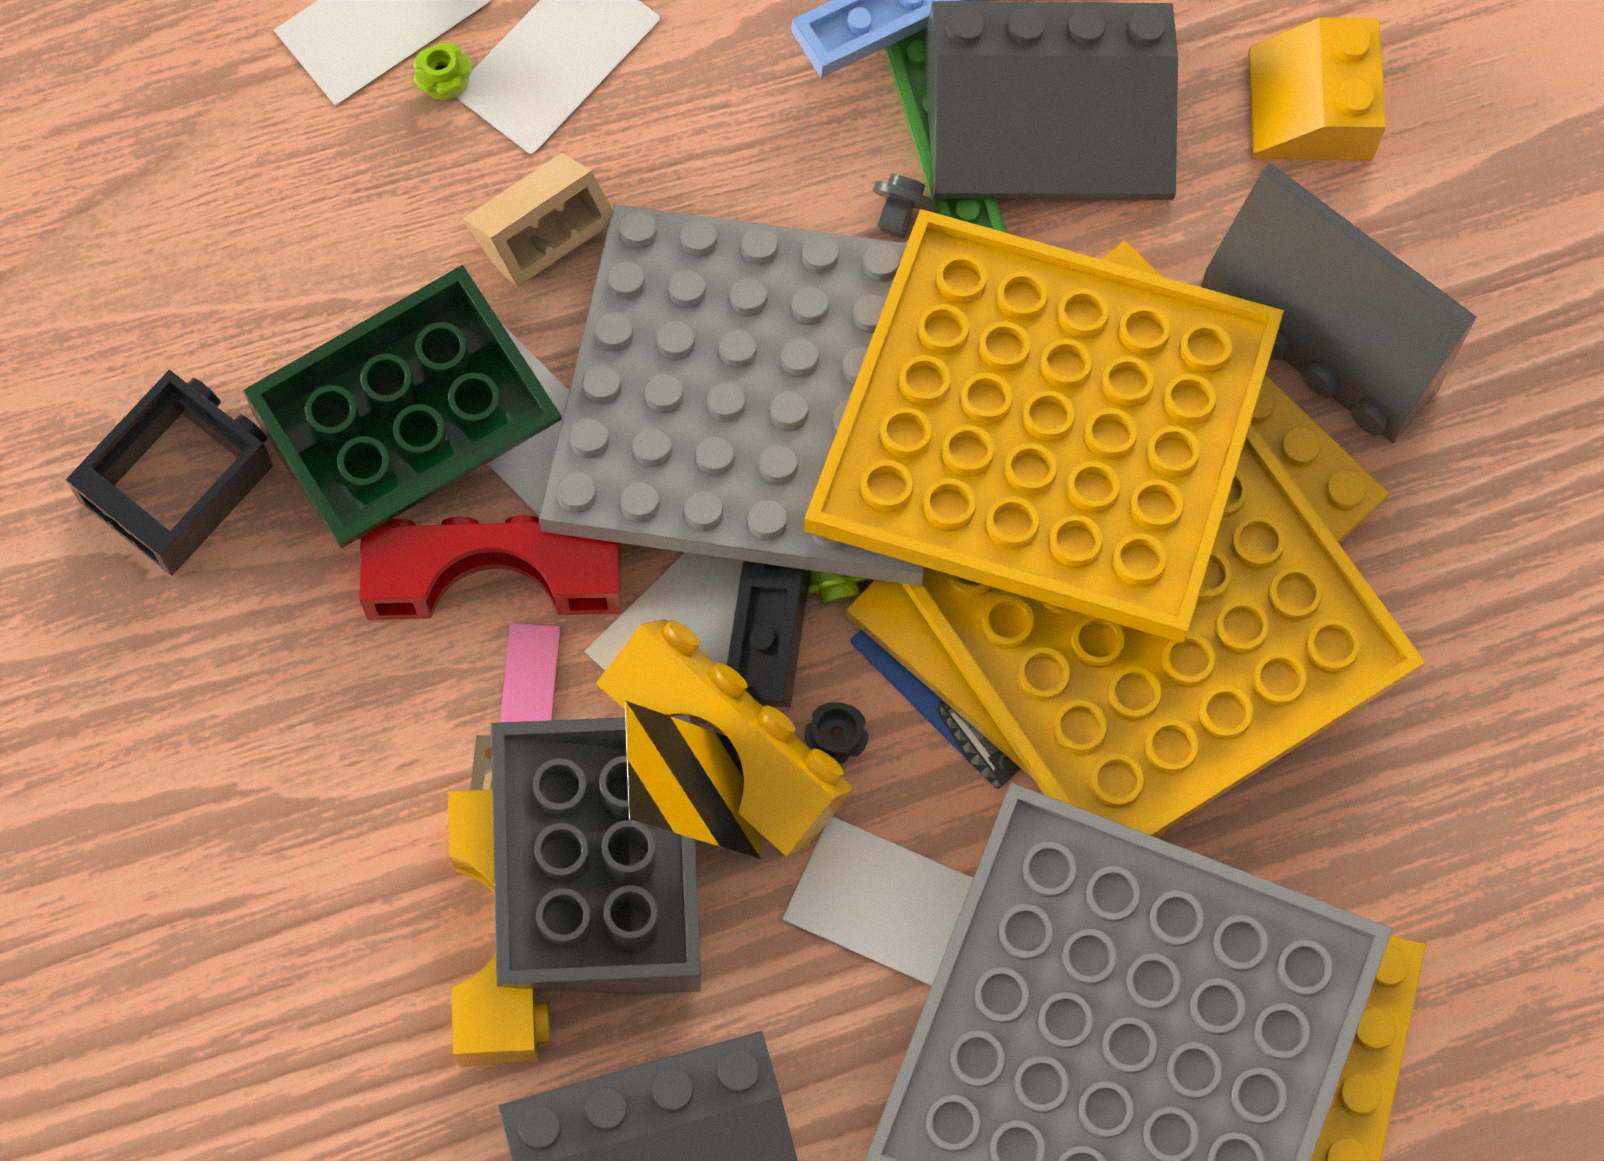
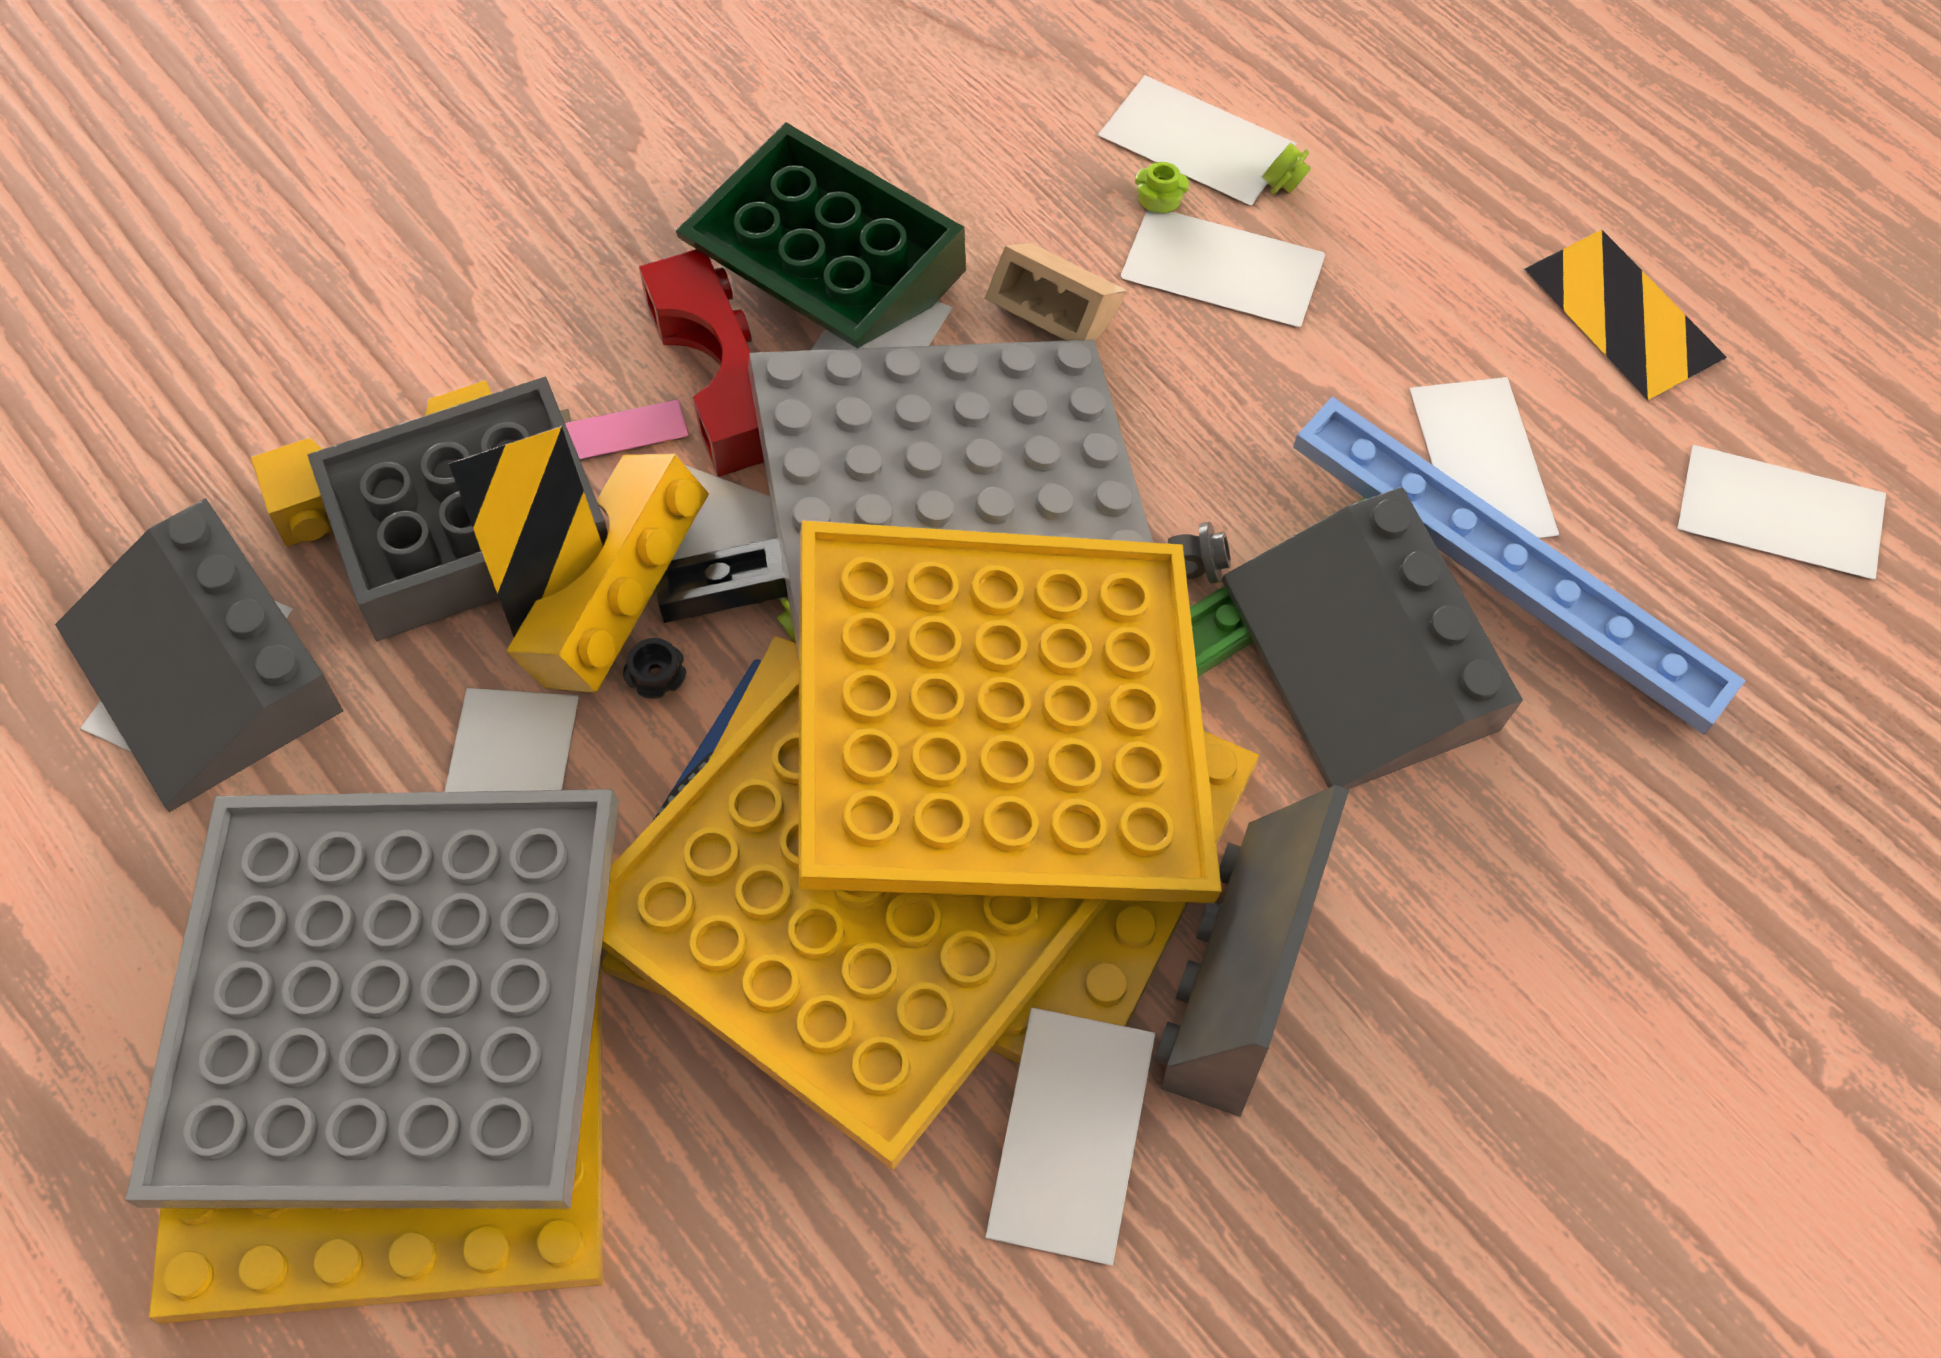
camera: 70 degrees right, 10 degrees down
(170, 397) = (715, 87): black window -> none
(1318, 91) = (1516, 888): yellow slope -> none
(1421, 524) = (1071, 1136): none -> white sticker

